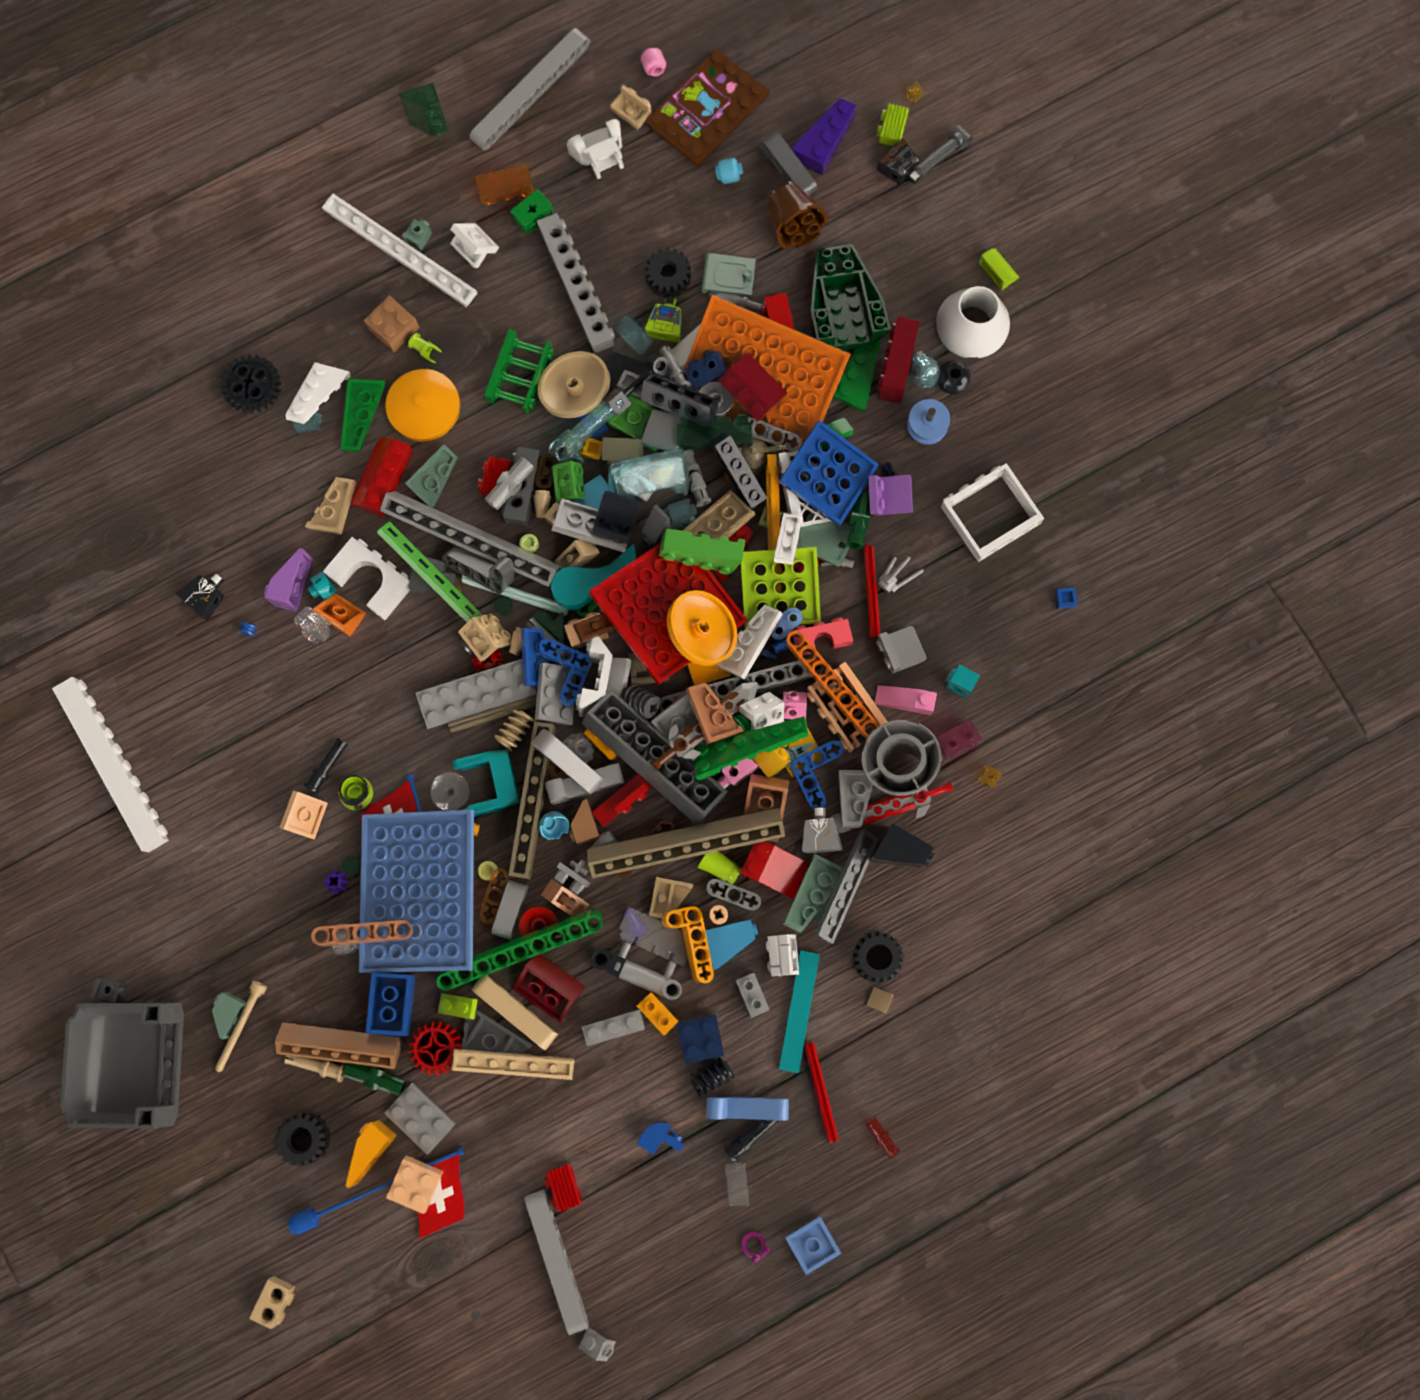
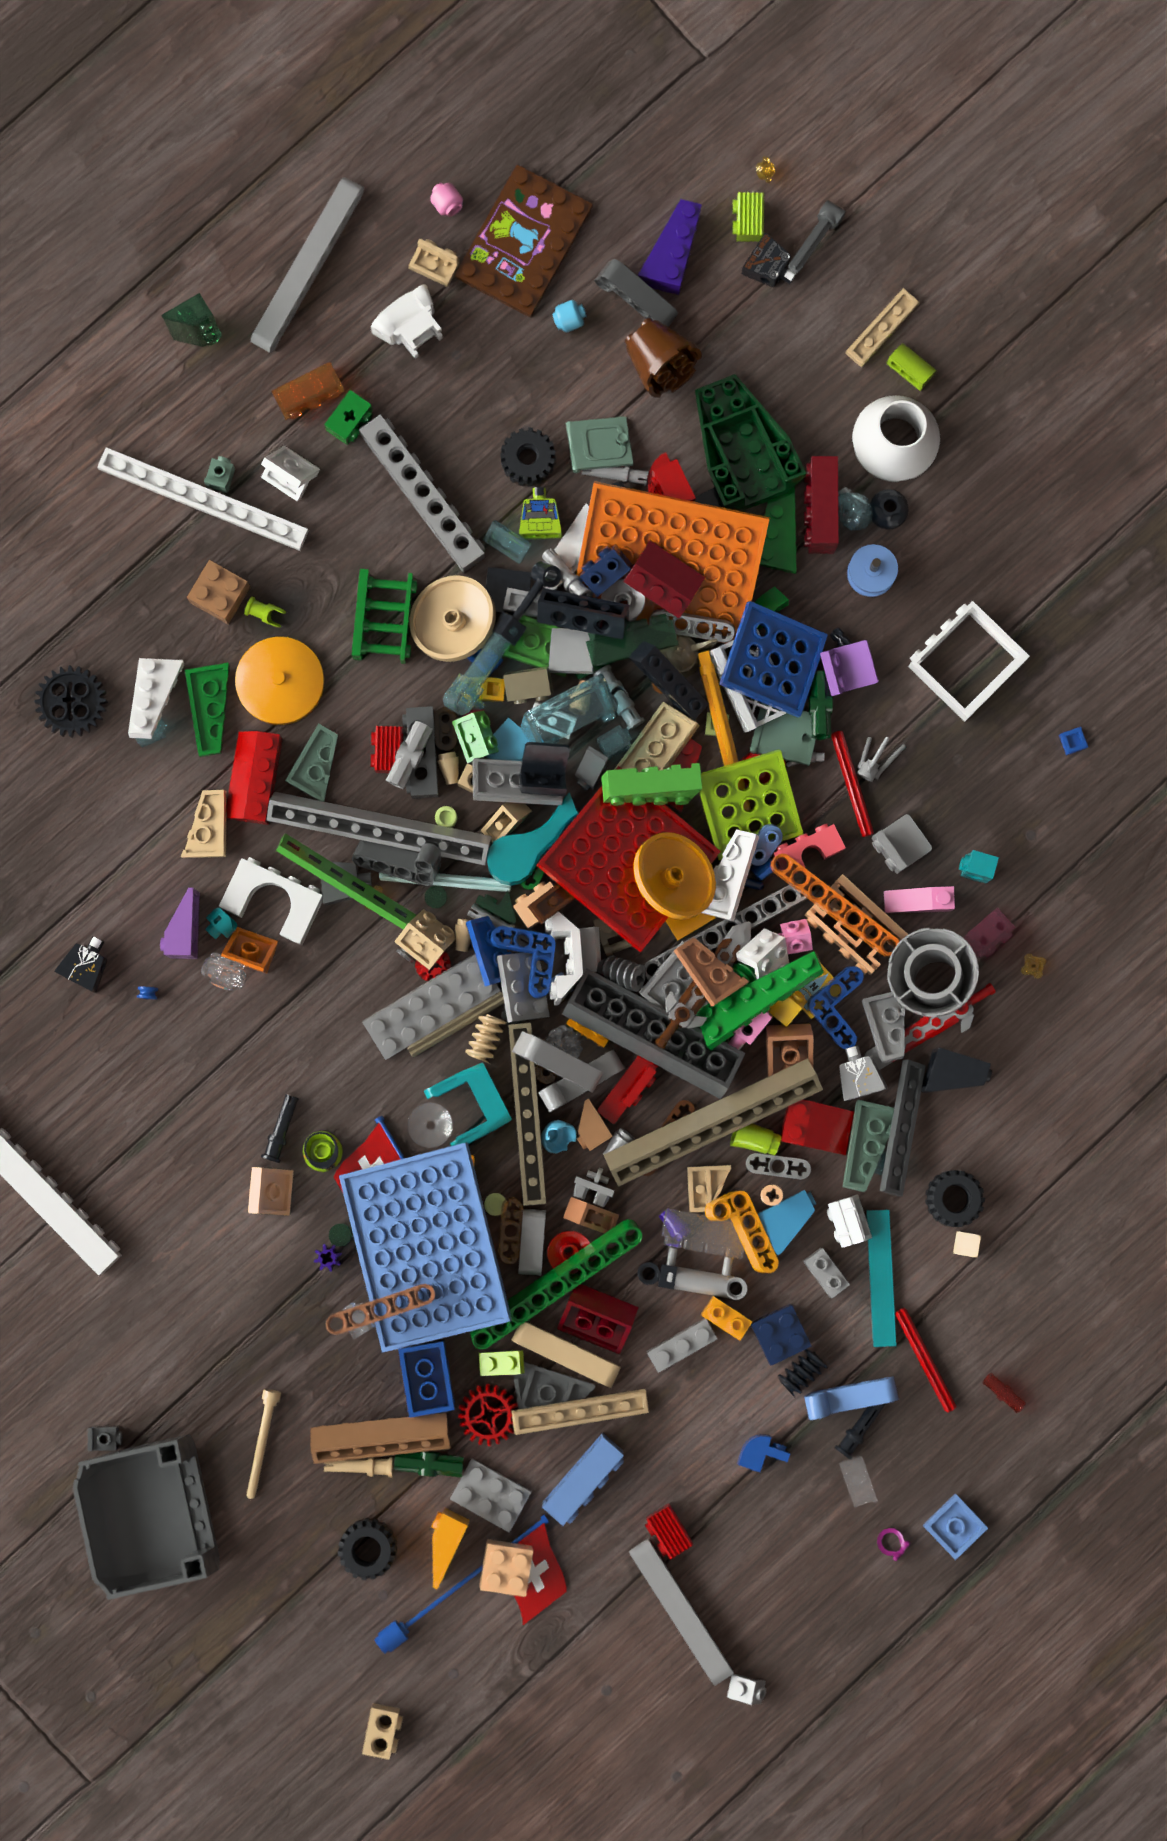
camera: 20 degrees left, 5 degrees up
(226, 1013) = (244, 1431): sand green slope -> none
(500, 1122) = (582, 1479): none -> medium blue brick
(788, 538) = (746, 748): white tile -> none
(981, 234) = (882, 327): none -> tan tile

